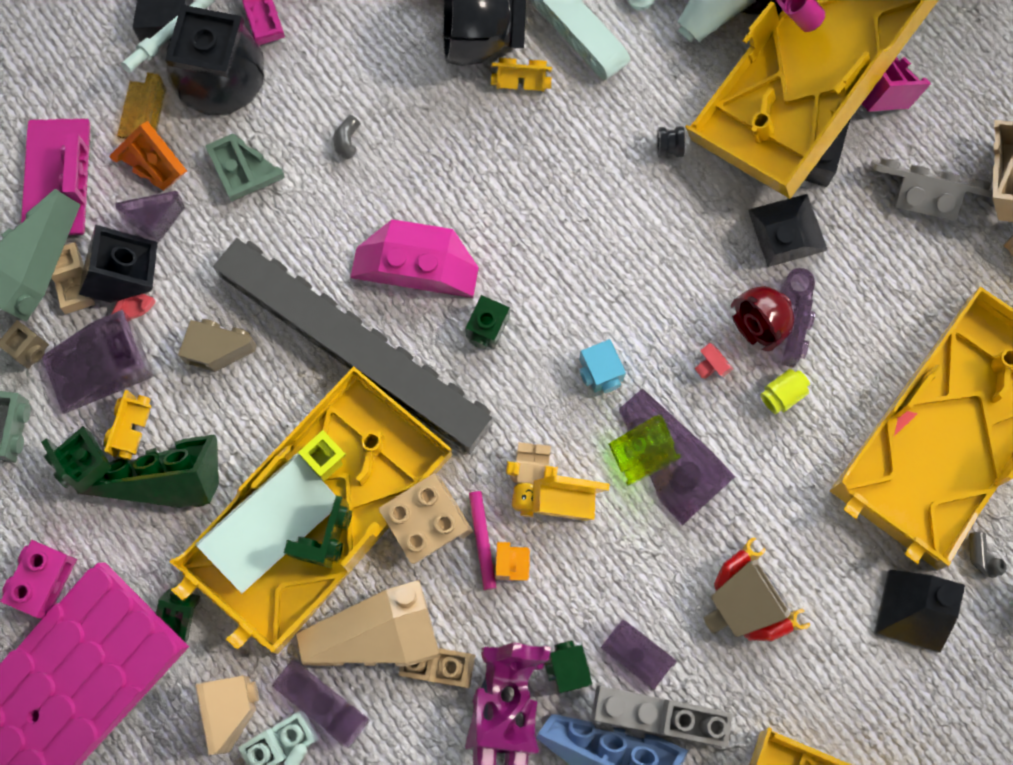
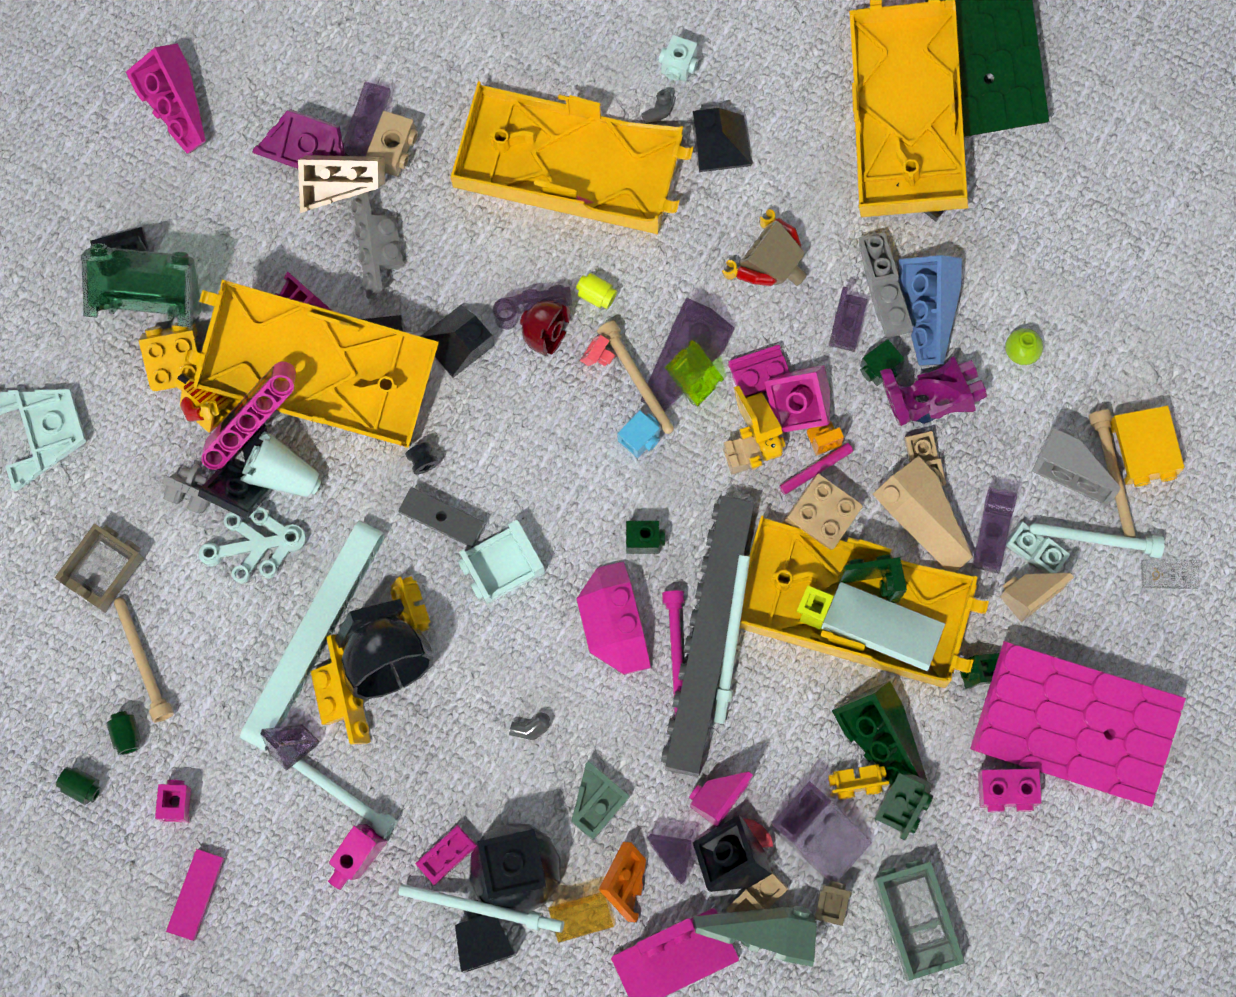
camera: 110 degrees left, 0 degrees up
(181, 277) = (719, 796): none -> dark pink slope
(214, 347) = (762, 743): dark tan slope -> none
(287, 333) = (723, 692): none -> light aqua bar
(406, 326) = (673, 602): none -> dark pink piece
(525, 174) = (501, 563): none -> light aqua panel
(567, 555) = (800, 398): none -> dark pink slope
(610, 126) = (427, 509): none -> dark grey tile
(619, 529) = (755, 368): none -> dark pink plate
(728, 386) = (612, 332): none -> tan piece

